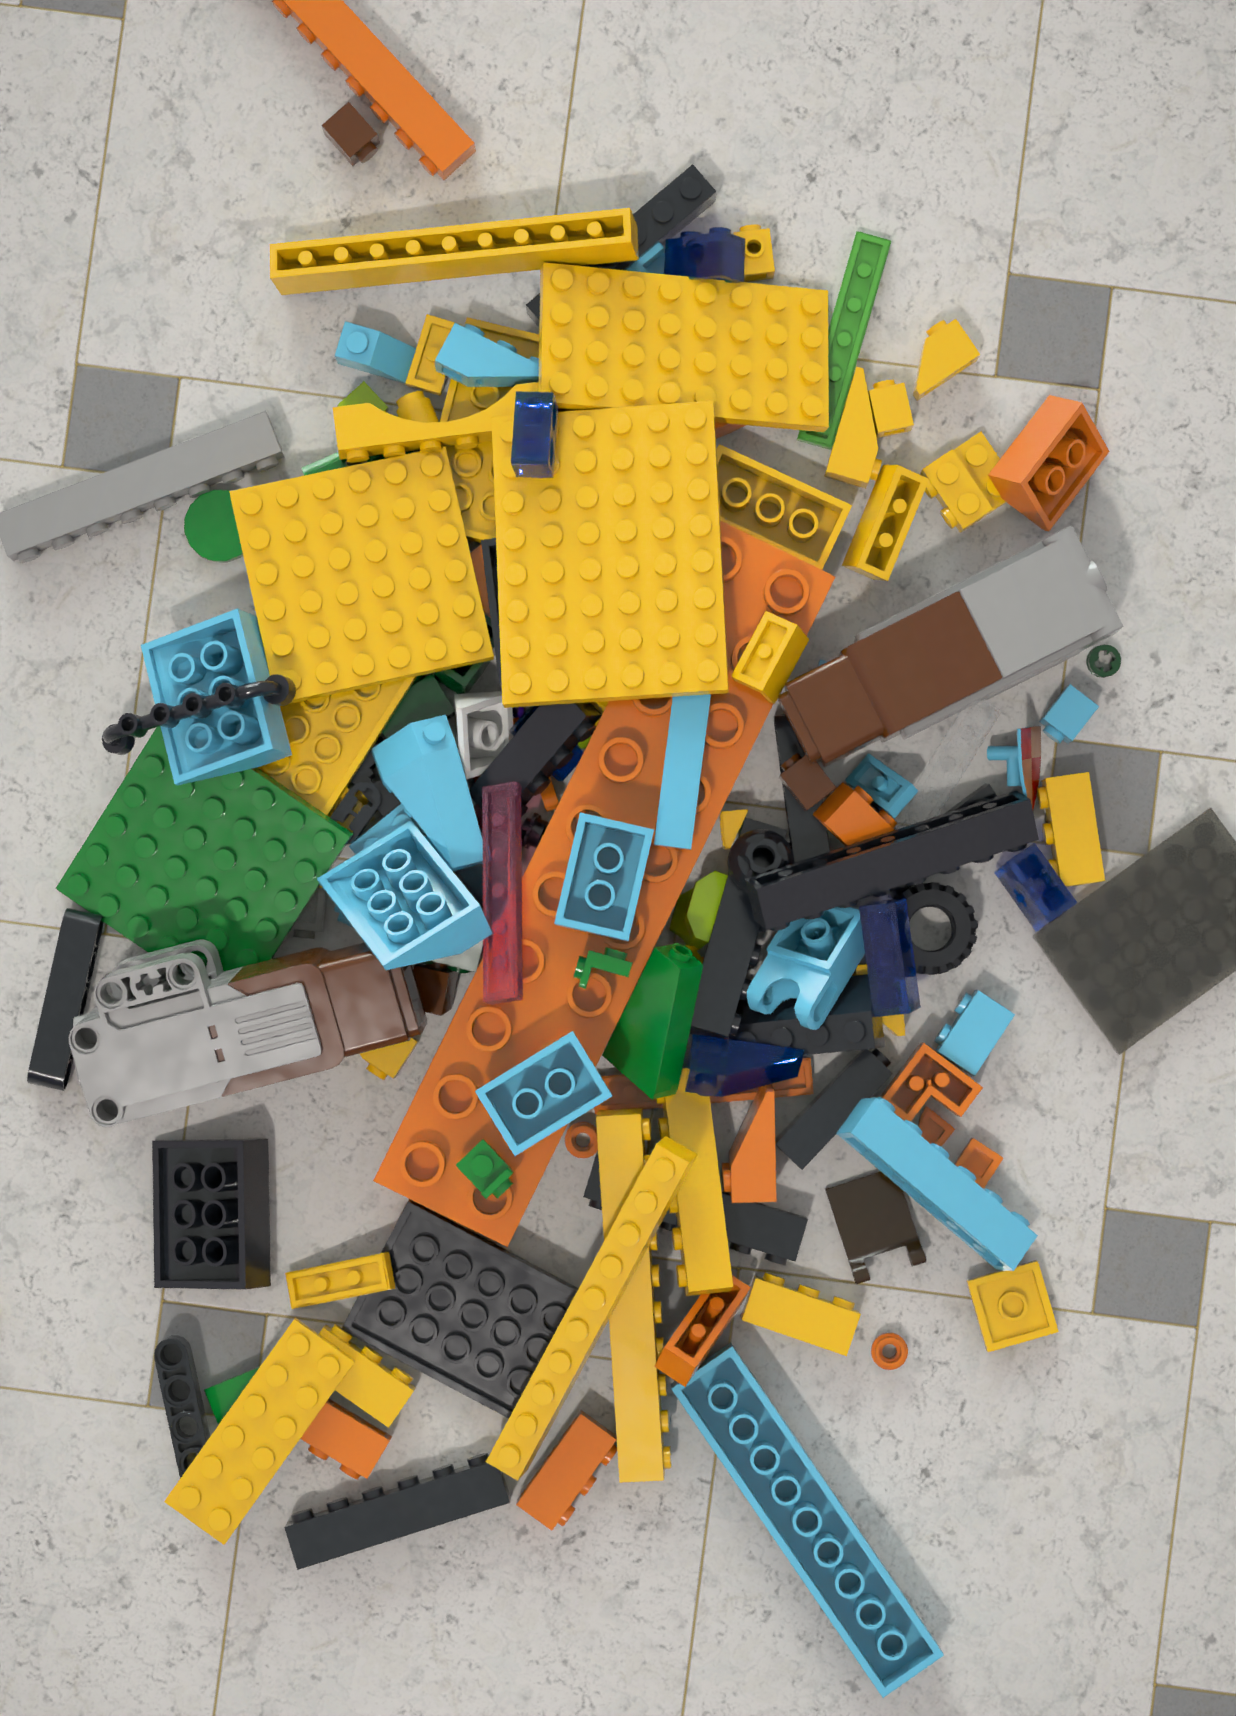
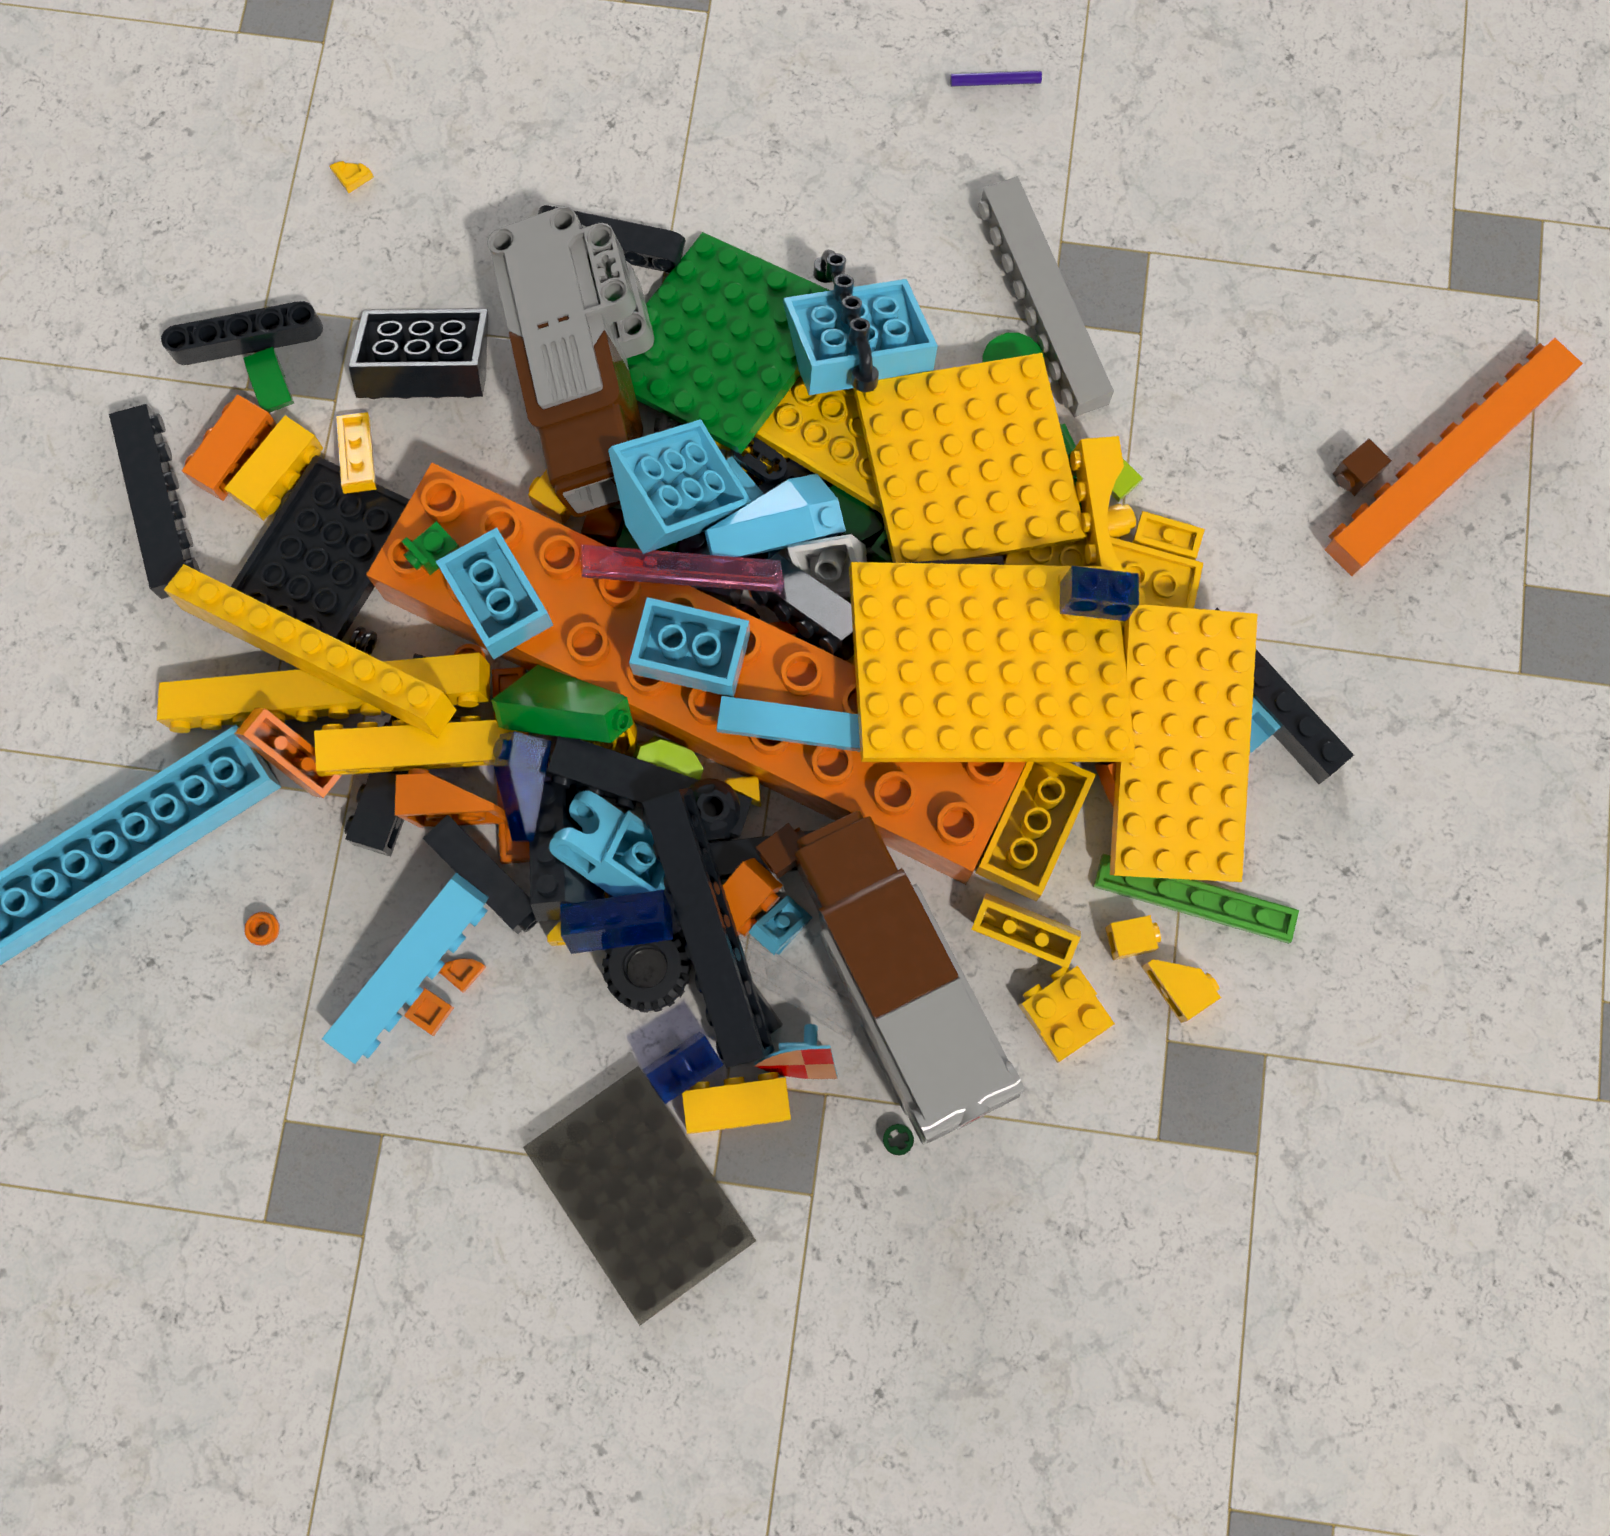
camera: 90 degrees right, 10 degrees down
(259, 1431) = (229, 382): yellow plate -> none
(374, 352) = (1169, 482): medium azure slope -> none
(454, 251) = (1263, 547): yellow brick -> none
(481, 362) = (1164, 565): medium azure slope -> none
(565, 1260) = (363, 641): none -> black bush
(568, 1471) = (175, 641): orange brick -> none
(611, 961) = (613, 653): green bracket -> none
(706, 256) = (1270, 768): clear blue brick -> none
(758, 253) = (1272, 814): yellow brick -> none
(770, 656) = (896, 805): yellow panel -> none
(801, 1313) = (299, 847): yellow brick -> none
(855, 444) = (1098, 904): yellow slope -> none
(872, 1221) = (378, 915): dark brown flag -> none
(929, 1075) = (508, 967): orange brick -> none
(973, 1032) = (549, 1009): medium azure brick -> none
(1012, 1306) = (293, 1043): yellow plate -> none
(1049, 461) = (1087, 1087): orange slope -> none
(1068, 715) = (845, 1102): medium azure brick -> none

